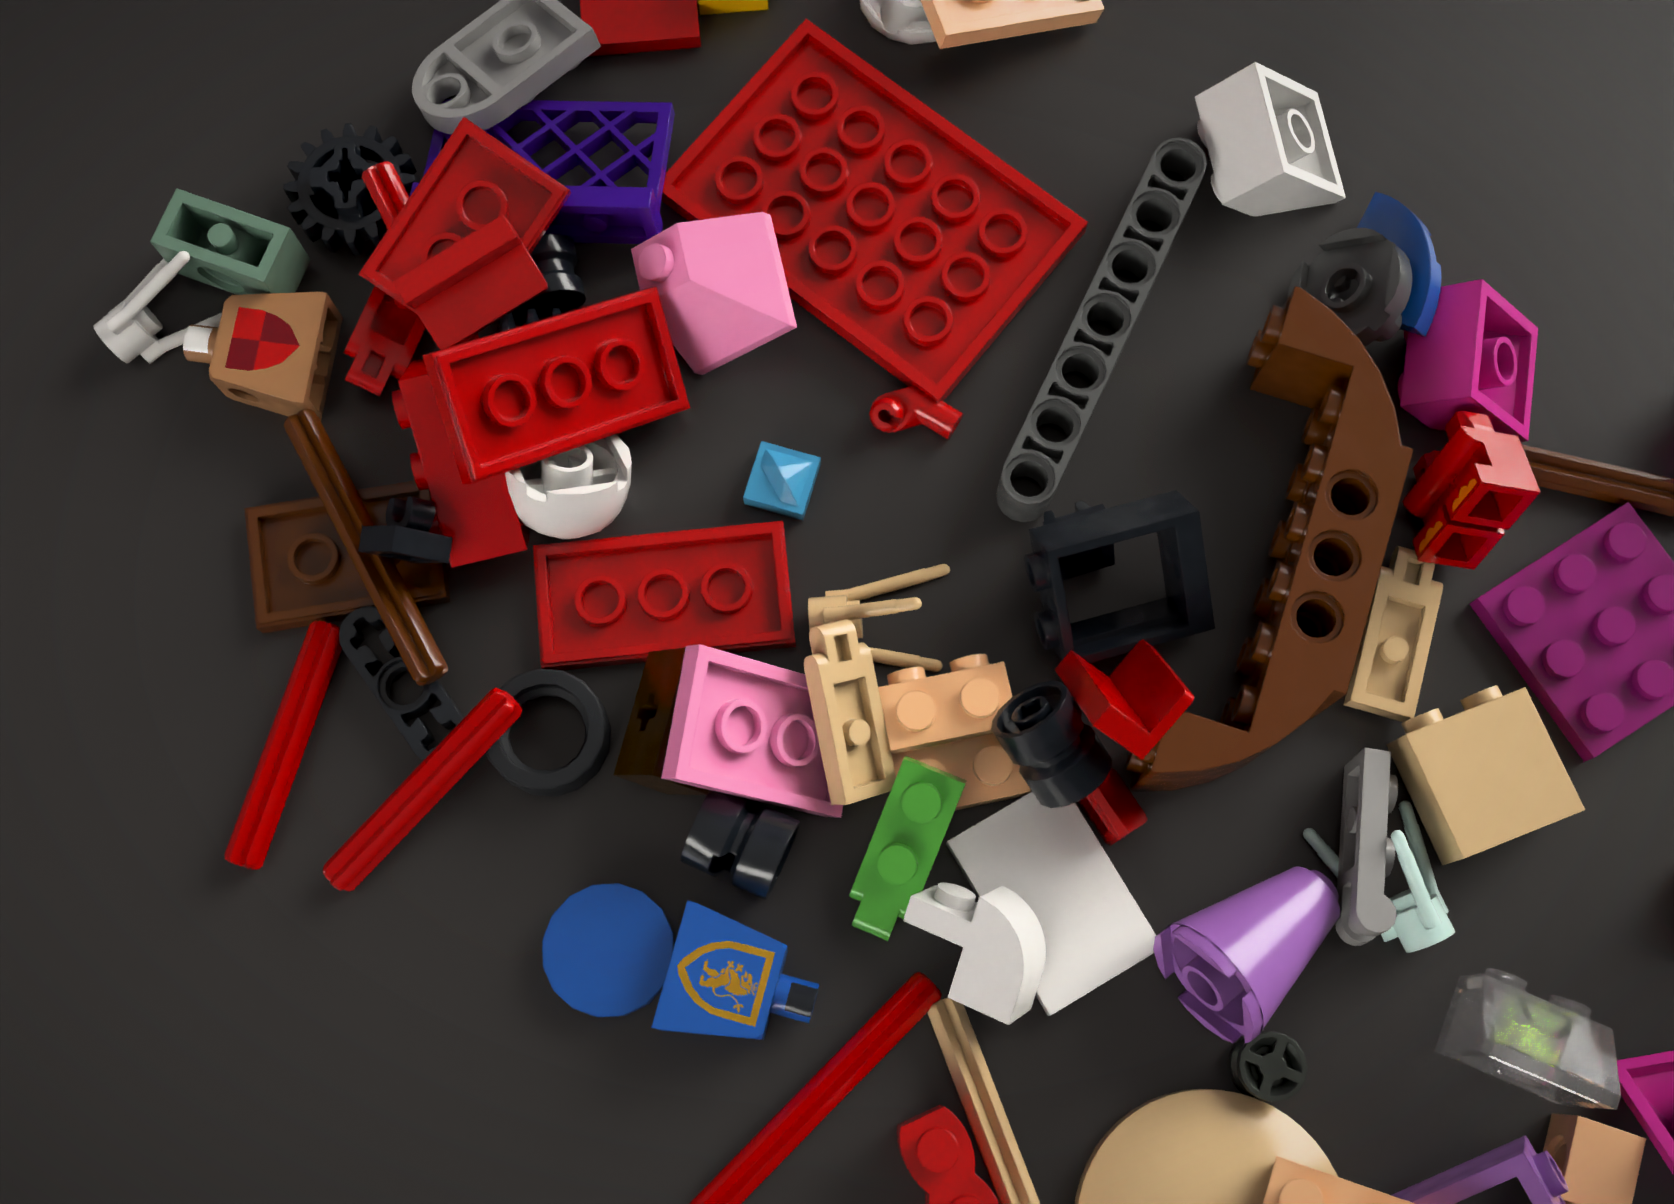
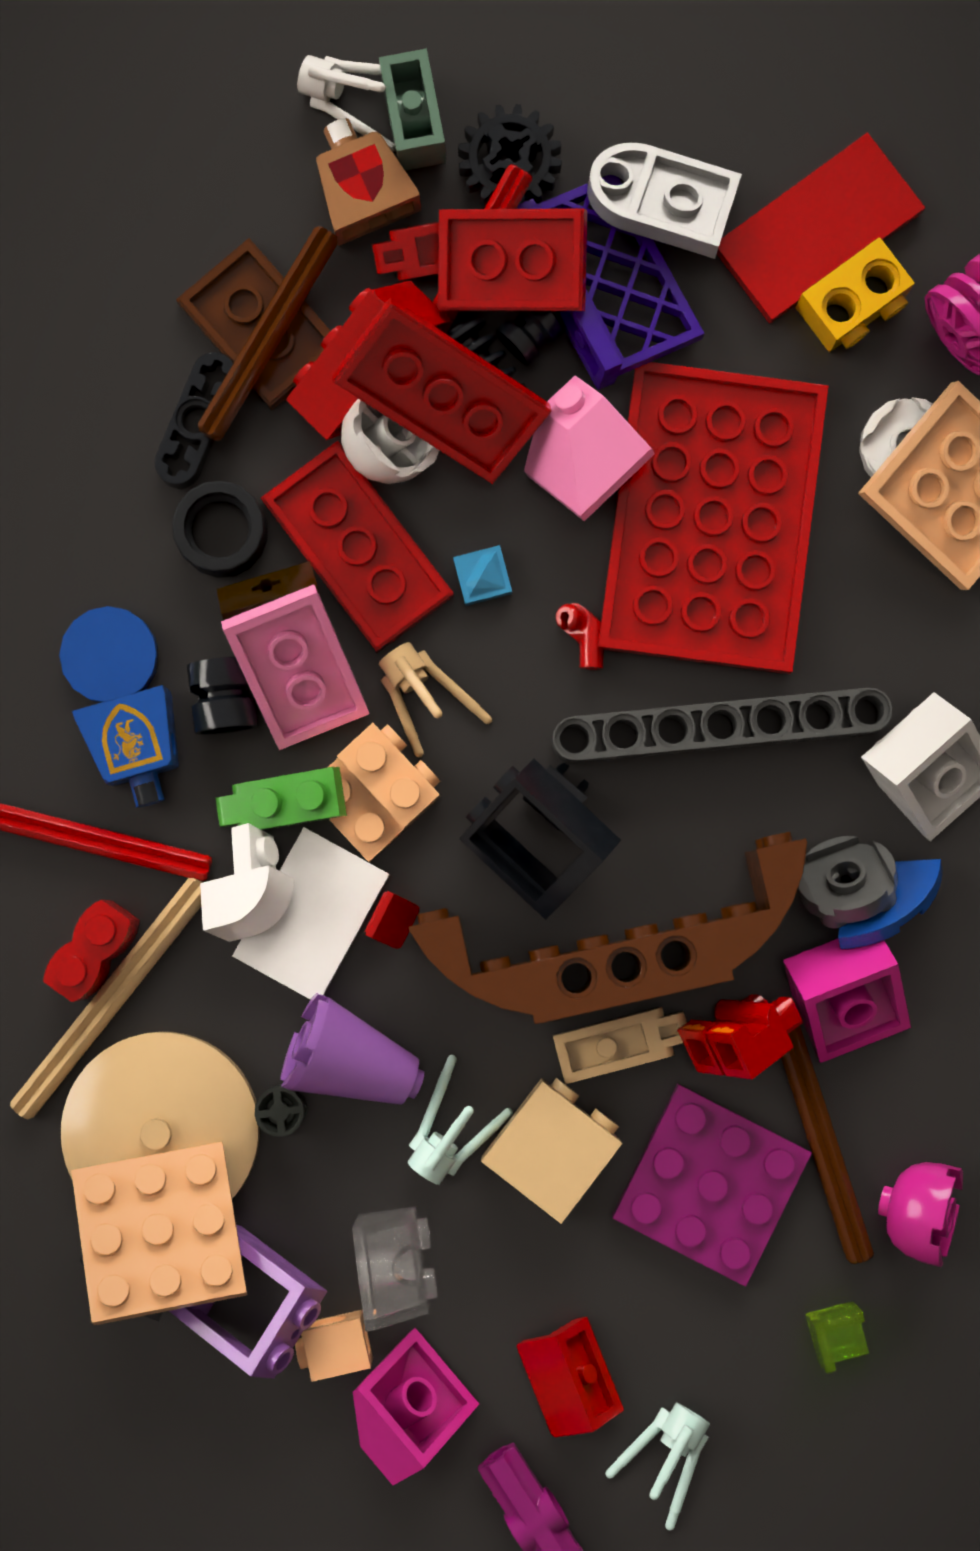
camera: 60 degrees right, 10 degrees up
(284, 746) = (114, 368): red axle -> none
(407, 534) = (284, 358): black tile -> none
(422, 790) = (134, 475): red axle -> none
(472, 283) = (476, 290): red panel -> none
(848, 714) = (341, 714): tan hinge -> none
(1051, 744) = (397, 855): black wheel -> none
(1134, 702) = (448, 887): red panel -> none
(1365, 849) = (450, 1100): light grey plate -> none

